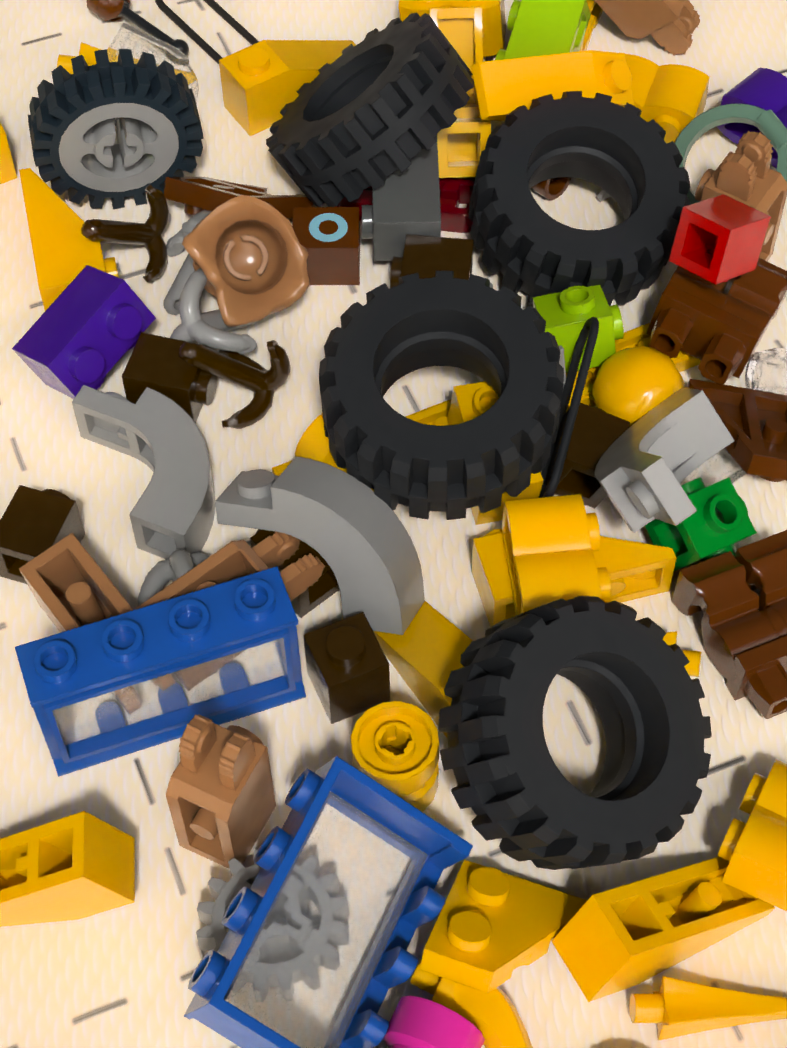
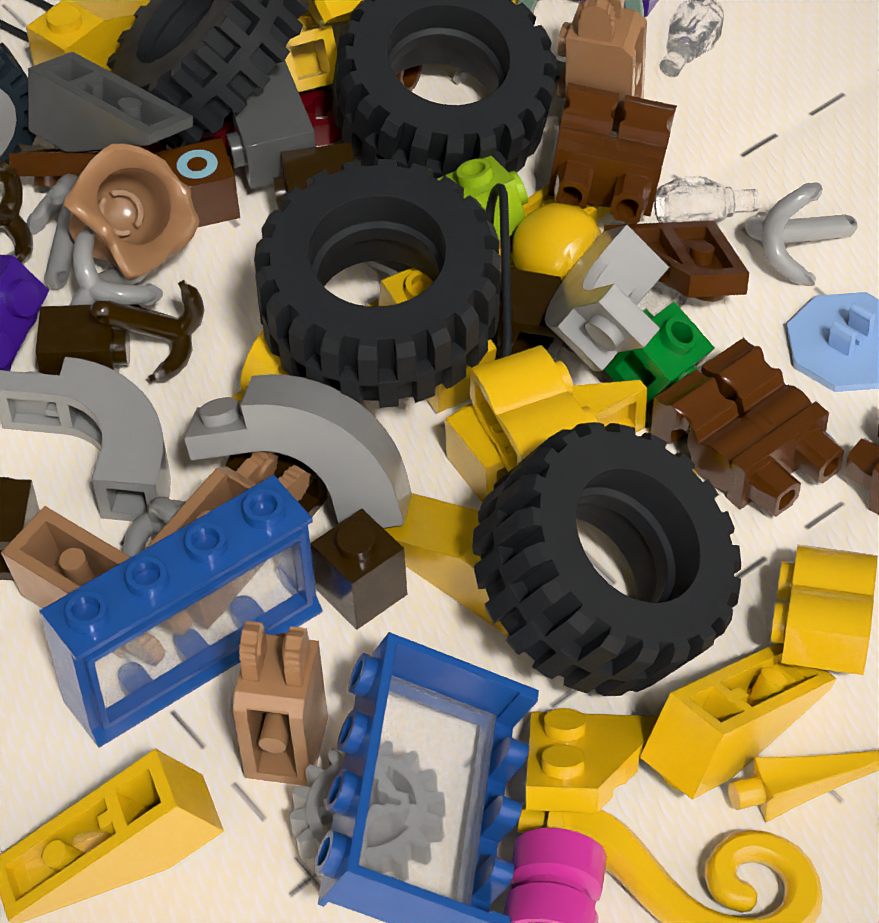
camera: 15 degrees left, 5 degrees down
(246, 155) = (90, 108): none -> dark grey slope
(398, 750) = (439, 616): yellow wheel -> none
(719, 238) = (597, 82): red brick -> none

